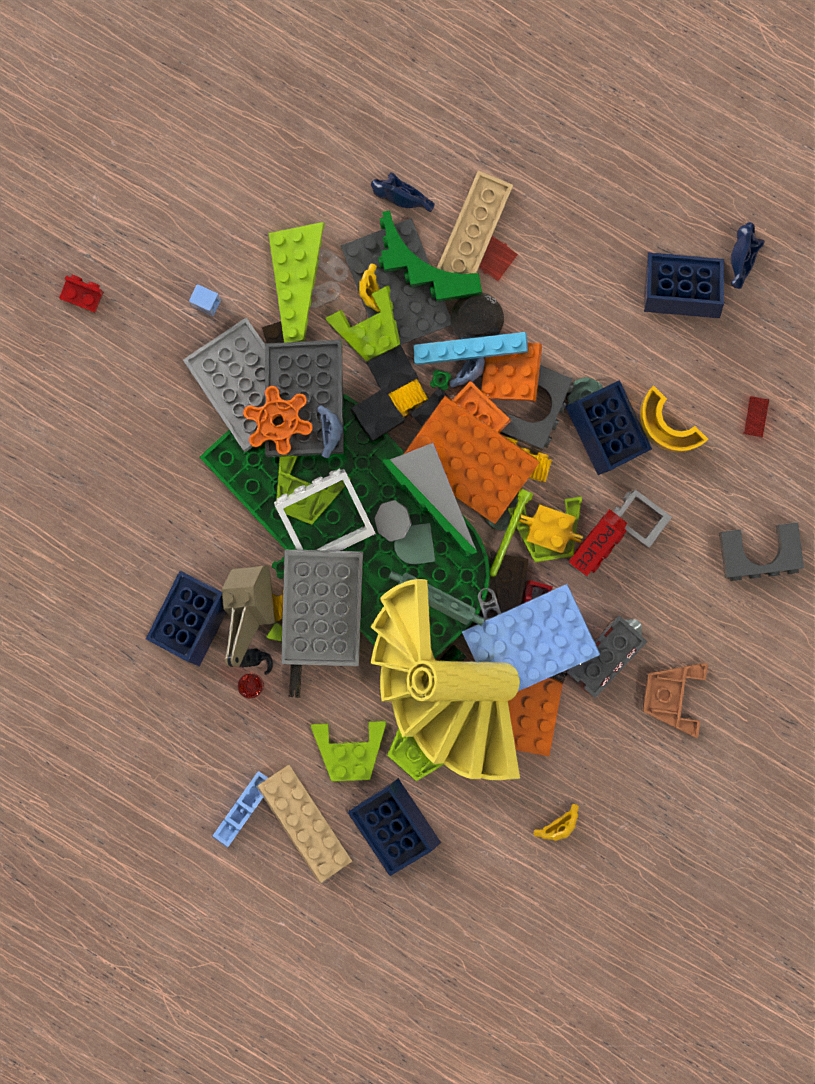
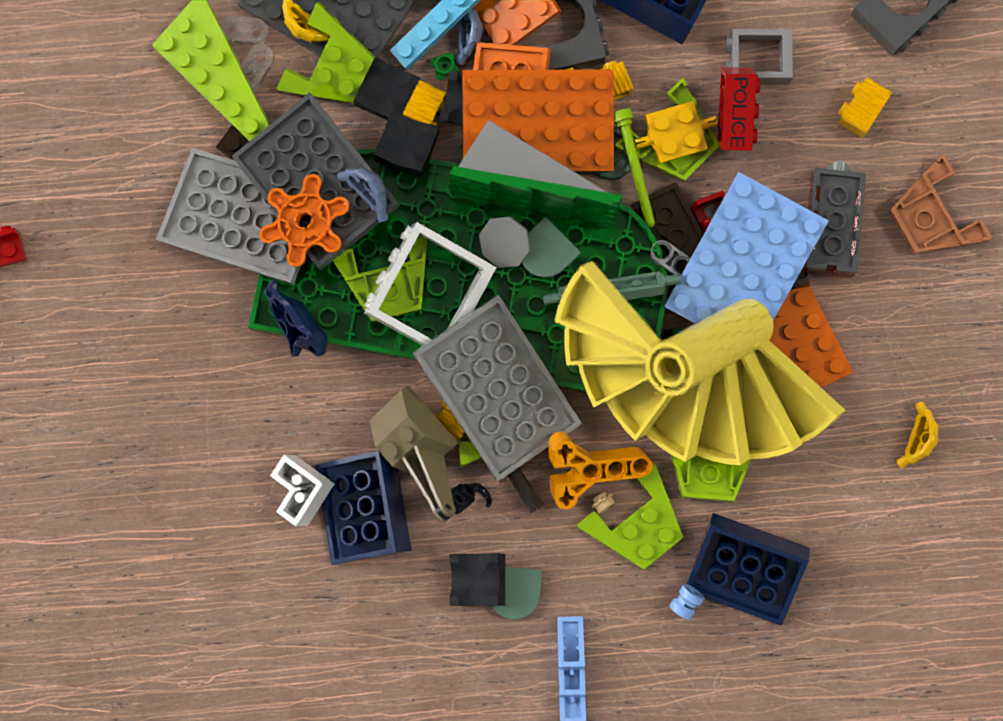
camera: 35 degrees left, 5 degrees down
(163, 580) = (306, 487): none -> white brick
(205, 300) = (134, 159): light blue panel -> none
(226, 713) = (478, 579): none -> black brick
(229, 477) = (296, 323): none -> dark blue animal
(244, 736) = (521, 592): none -> sand green tile
(250, 685) = (482, 529): clear red wheel -> none
(277, 566) = (415, 383): green plate -> none
(304, 823) = (649, 636): tan plate -> none
(337, 722) = (603, 502): none -> tan plate
(340, 686) = (577, 480): none -> light orange beam
(341, 820) = (687, 601): none -> light blue wheel
(681, 598) = (864, 108): none -> yellow brick

